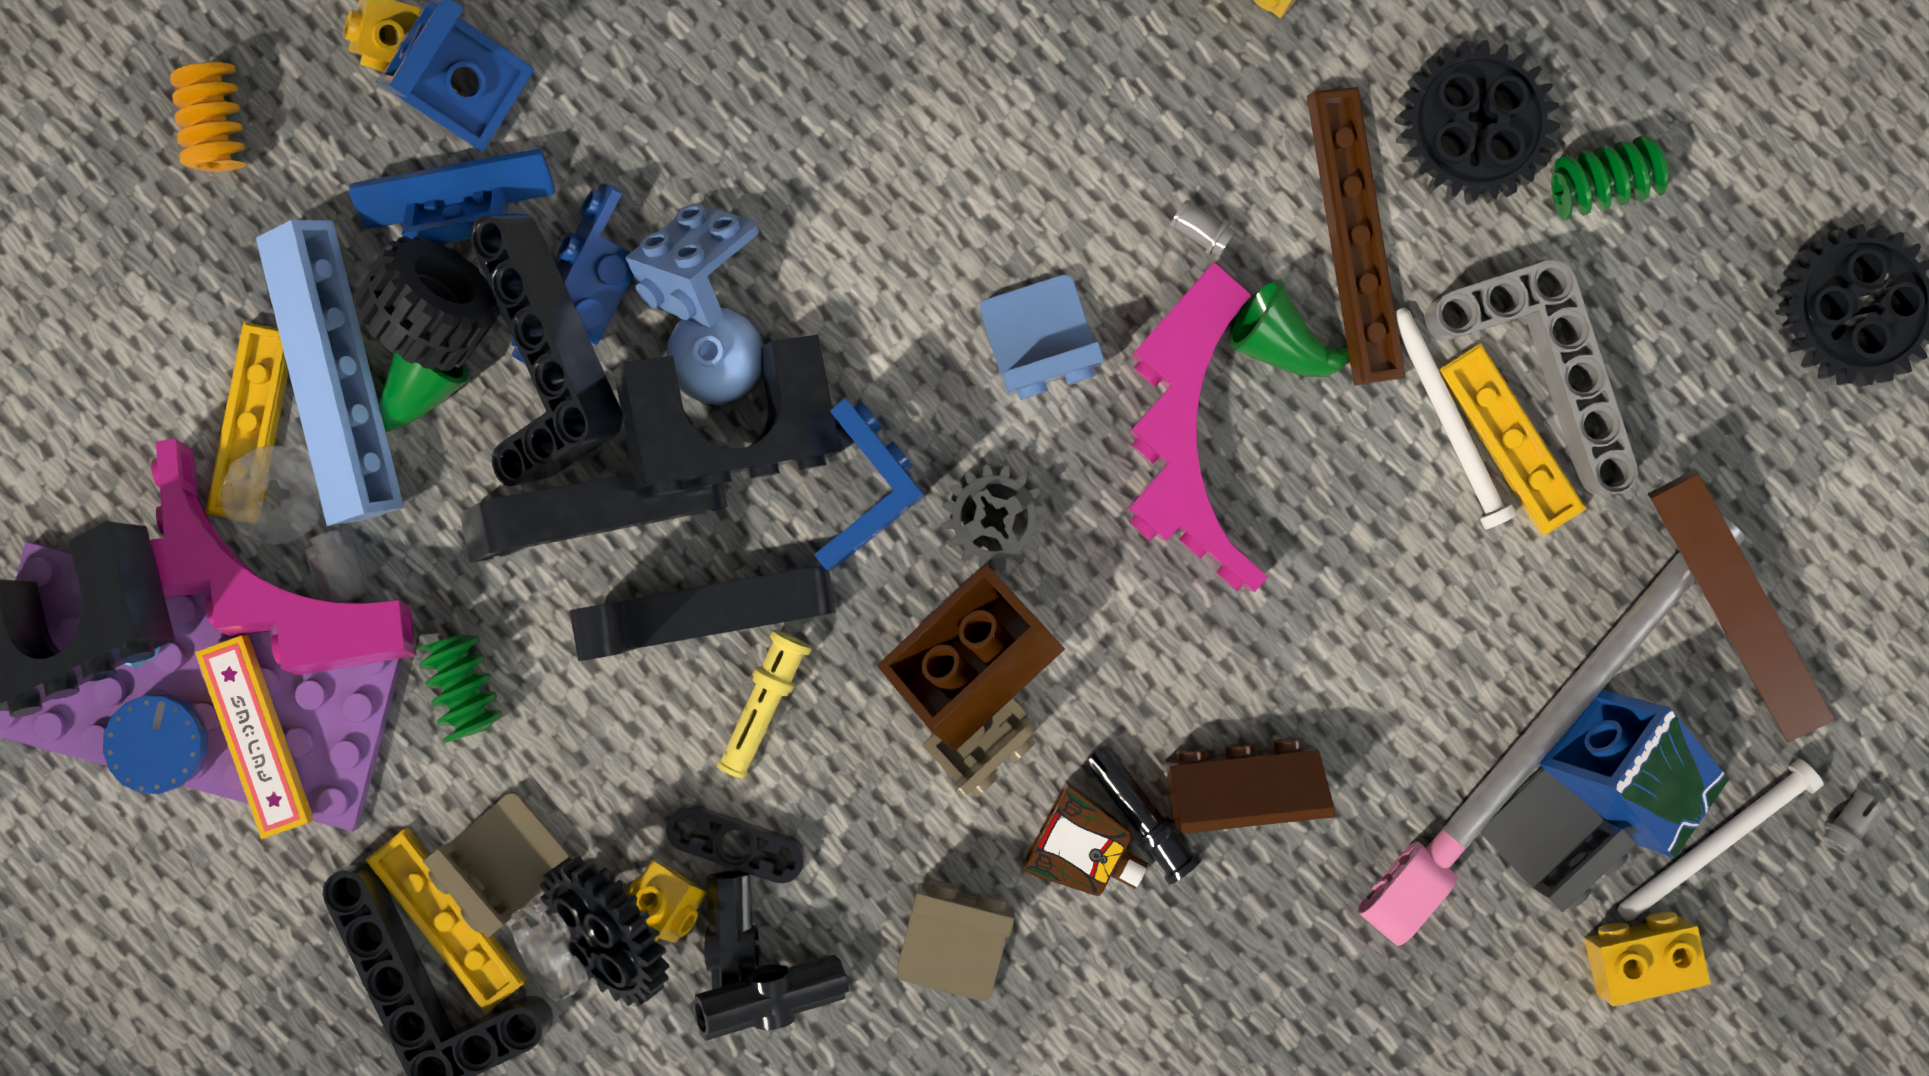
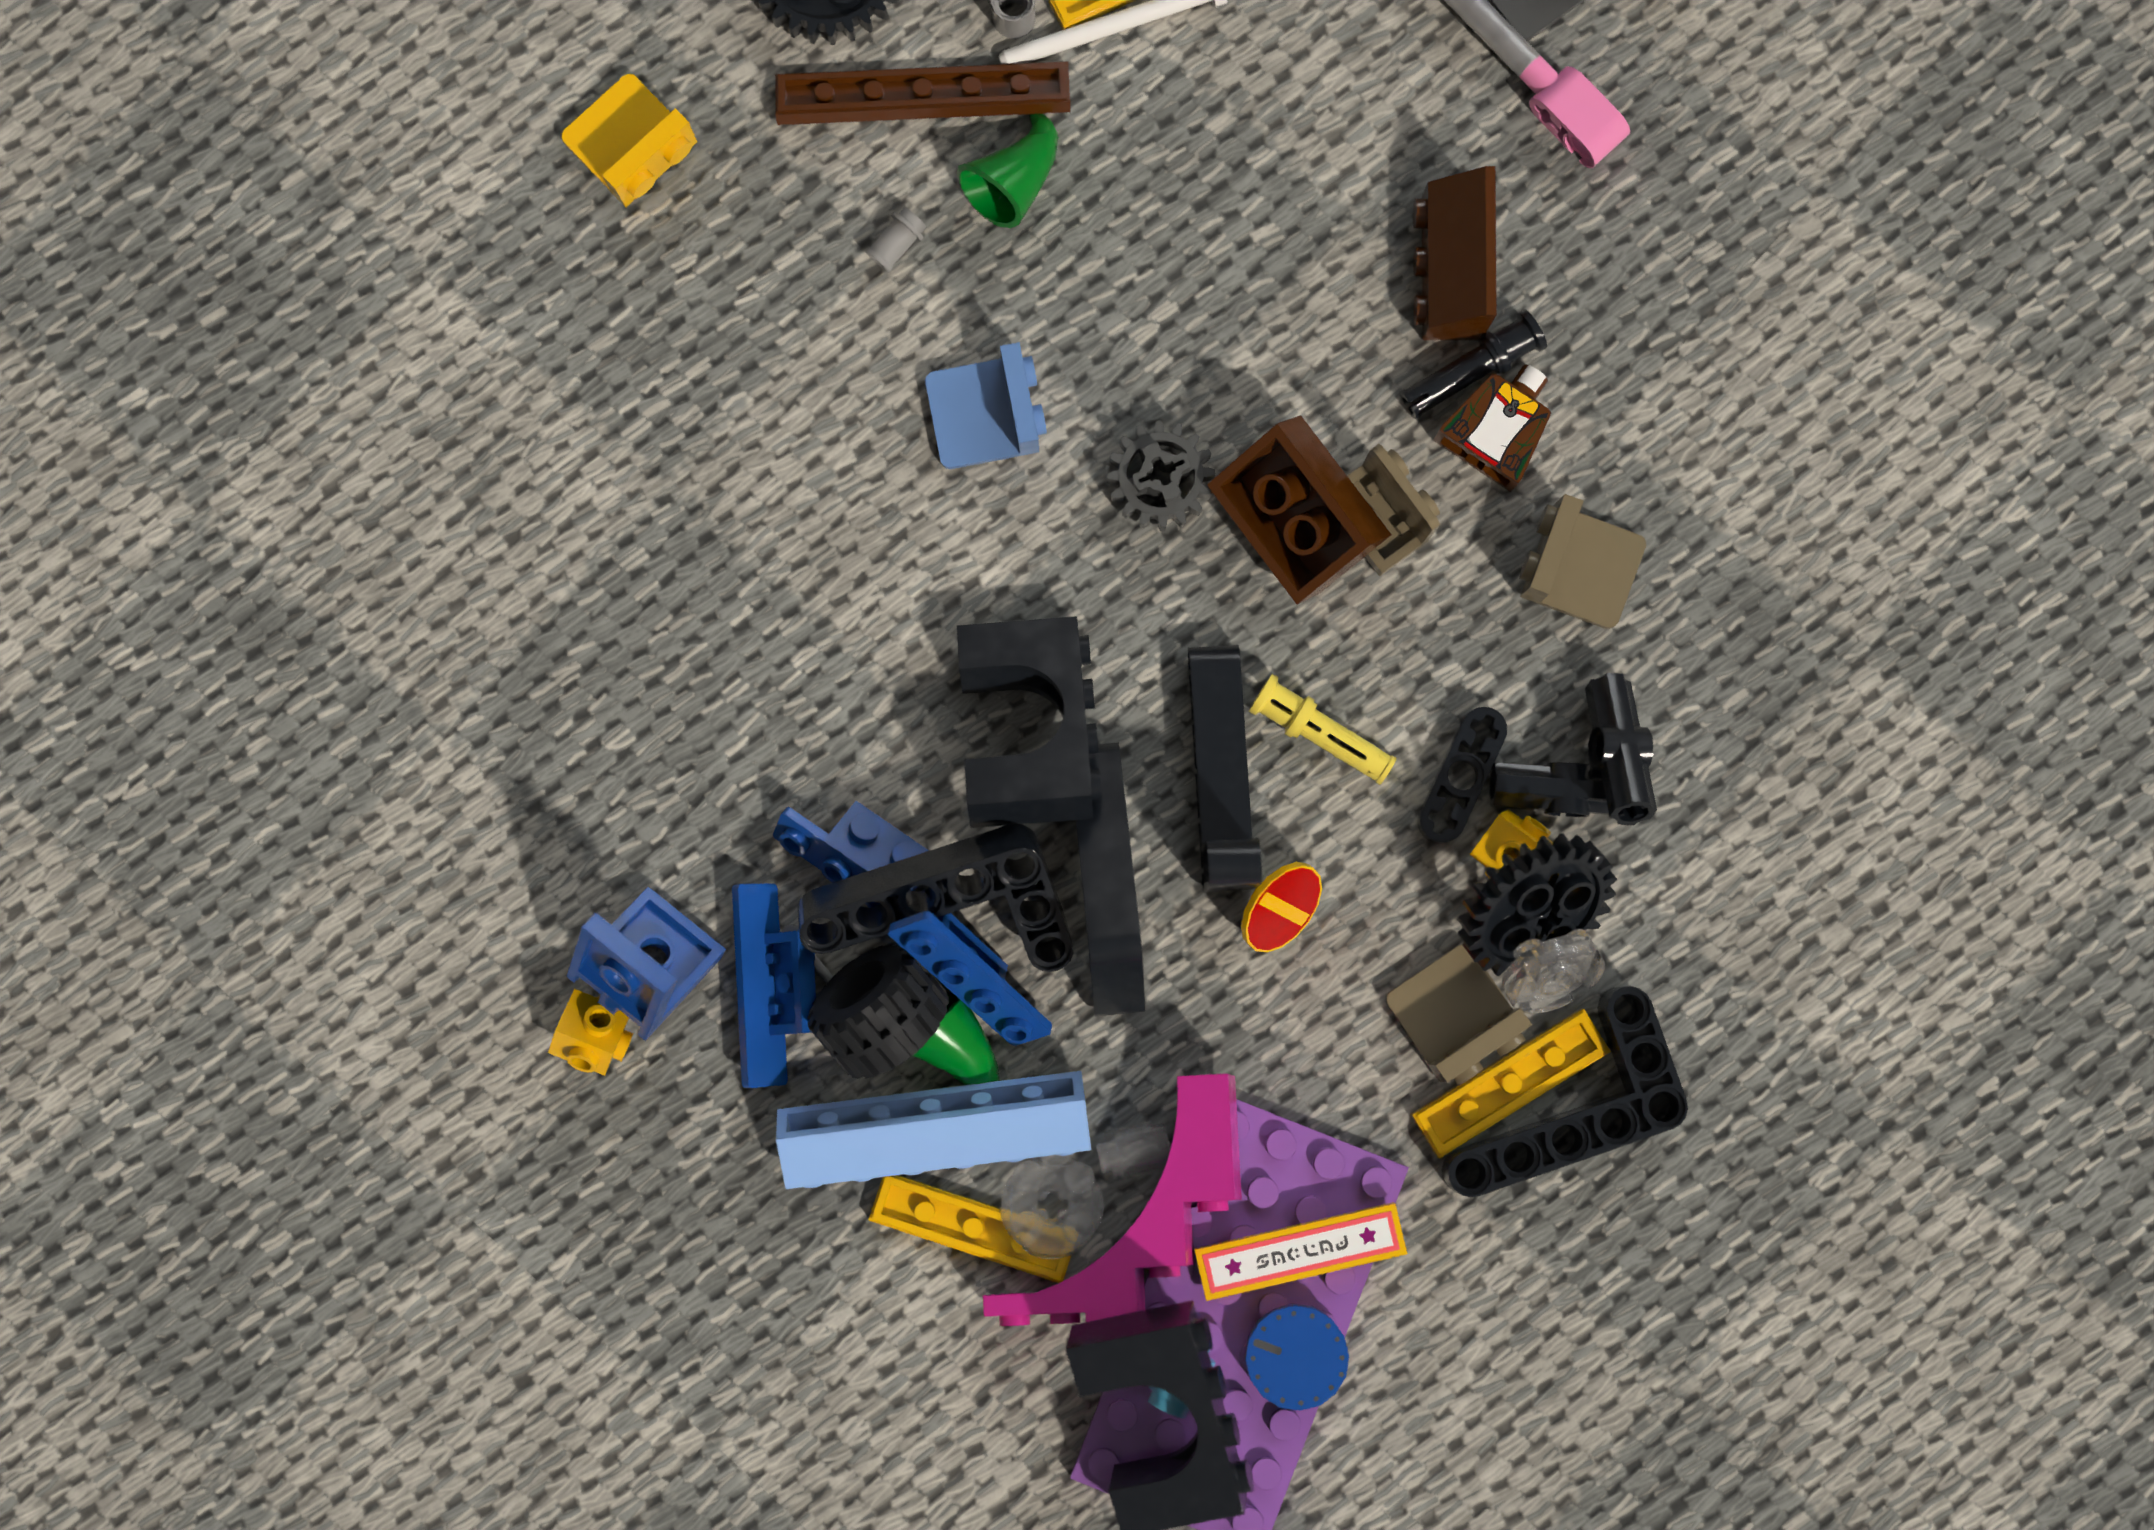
camera: 85 degrees left, 5 degrees down
(204, 116) = (653, 1229): light orange piece -> none
(459, 686) = (1271, 1034): green piece -> none
(481, 387) = (970, 973): none -> blue bracket
(581, 682) = (1281, 907): none -> red piece
(678, 258) = (863, 749): medium blue bracket -> none
(719, 361) = (960, 727): light blue cylinder -> none
(892, 466) = (1101, 565): blue bracket -> none
(1178, 359) = (1022, 276): dark pink arch -> none

